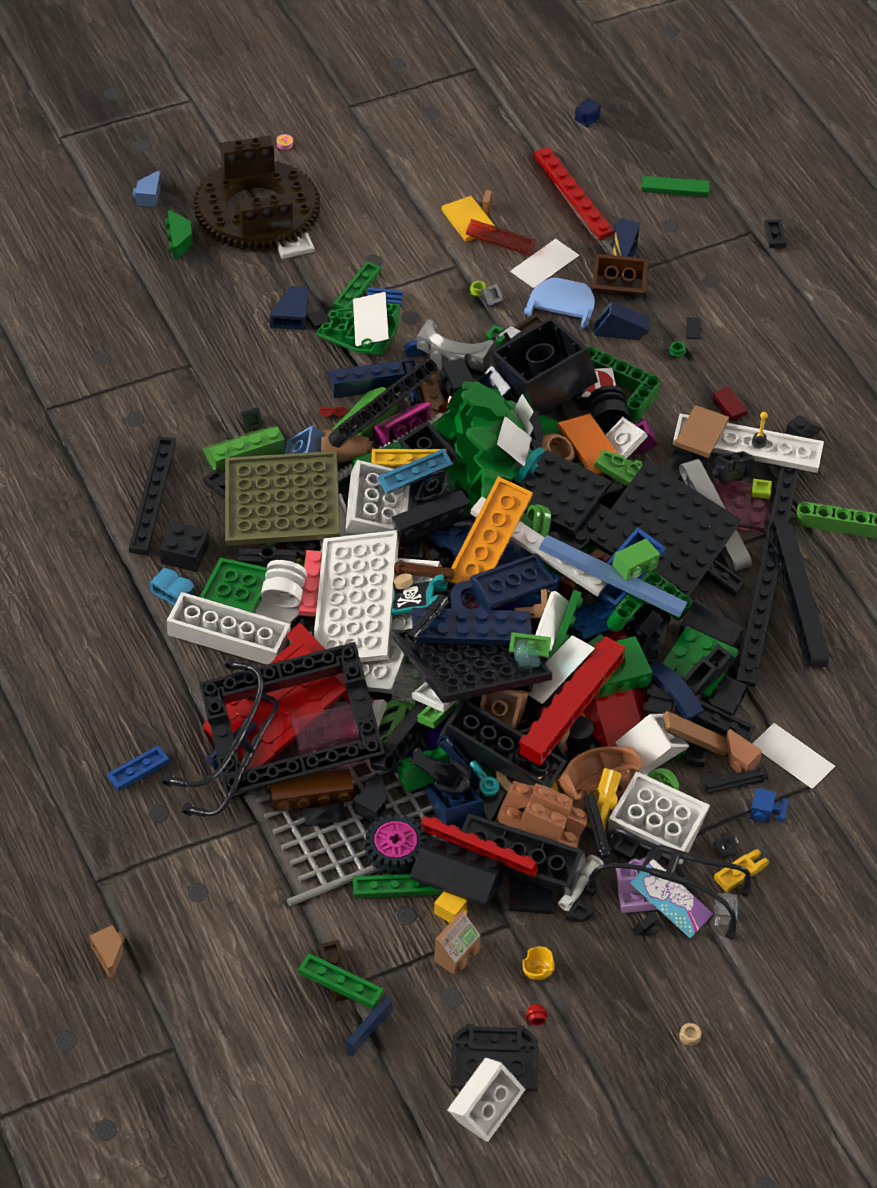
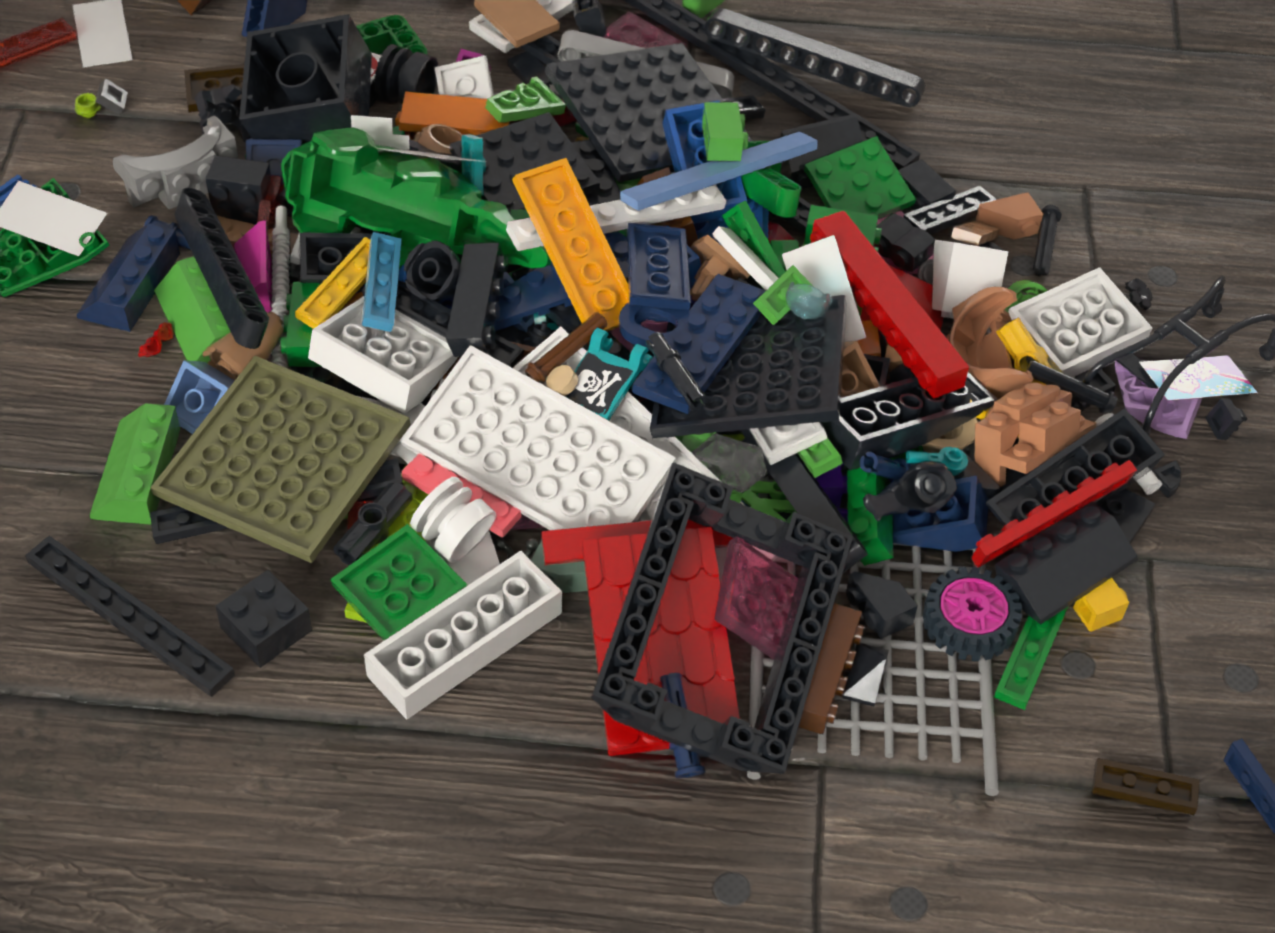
camera: 60 degrees left, 0 degrees up
(138, 768) = (640, 874): blue plate -> none
(169, 586) = (328, 670): dark azure brick -> none
(250, 748) = (753, 698): black bar -> none
(251, 419) = (91, 432): black tile -> none
(340, 981) = (1181, 785): green plate -> none
(411, 349) = (128, 208): blue tile -> none
(457, 944) = (1172, 625): medium nougat slope -> none
(495, 330) = (183, 124): green plate -> none
(538, 963) = (1242, 552): yellow hair -> none
(564, 298) = (179, 40): light blue piece -> none
(677, 689) = (909, 212): dark blue slope -> none
(709, 669) = (895, 175): black slope -> none
(721, 914) = (1242, 342): clear brick -> none
(731, 878) = (1182, 294): yellow hinge -> none
(761, 488) = (633, 15): lime tile -> none
(764, 806) = (1102, 232): blue brick -> none
(793, 755) = (1036, 177): white sticker -> none

